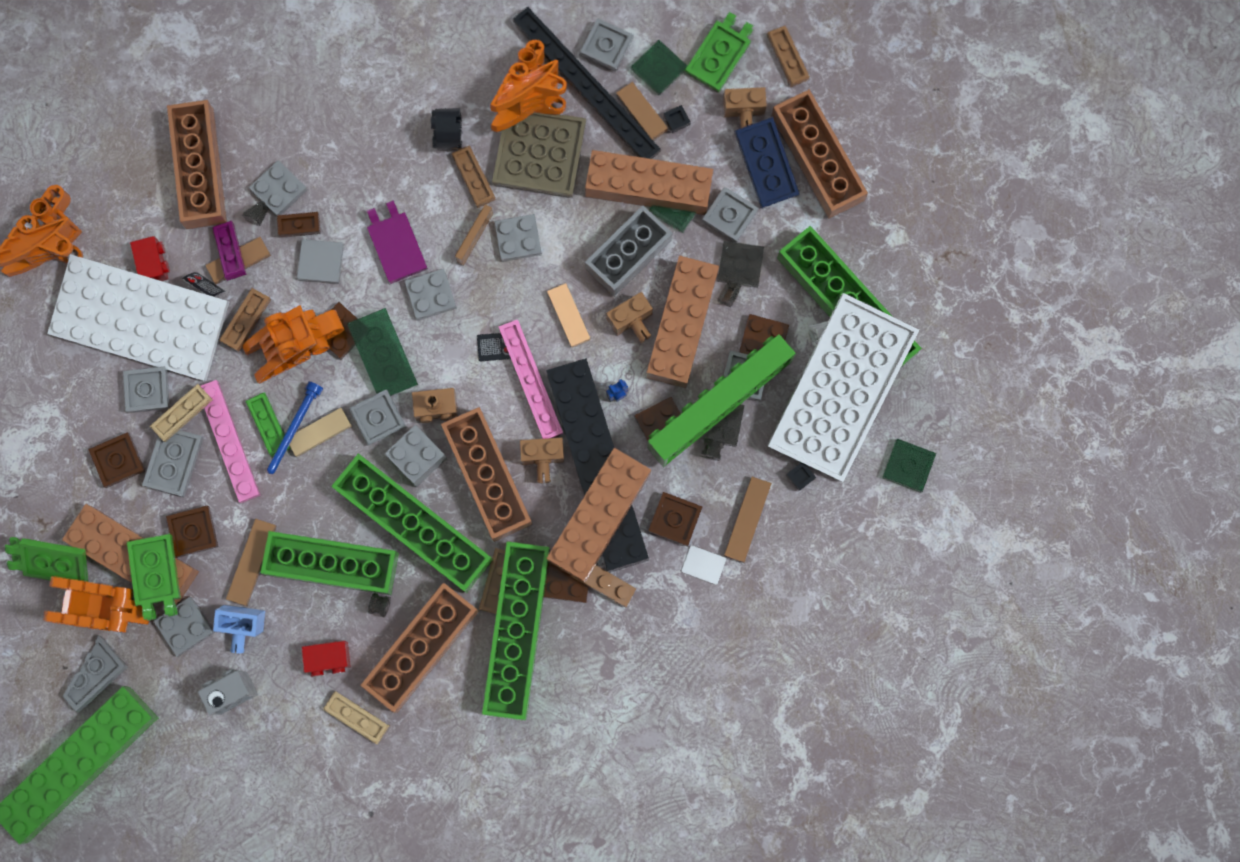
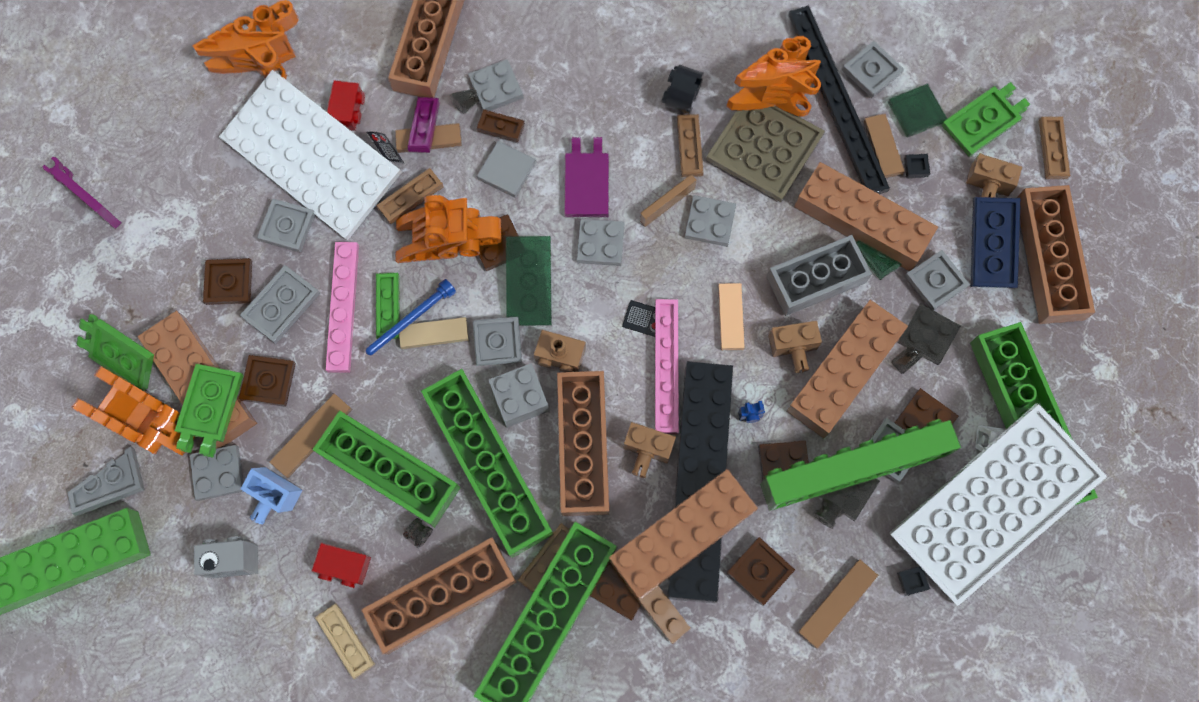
camera: 25 degrees right, 5 degrees down
(181, 413) = (308, 260): tan tile -> none
(703, 565) = (772, 632): white sticker -> none
(909, 465) = (1036, 618): clear green tile -> none

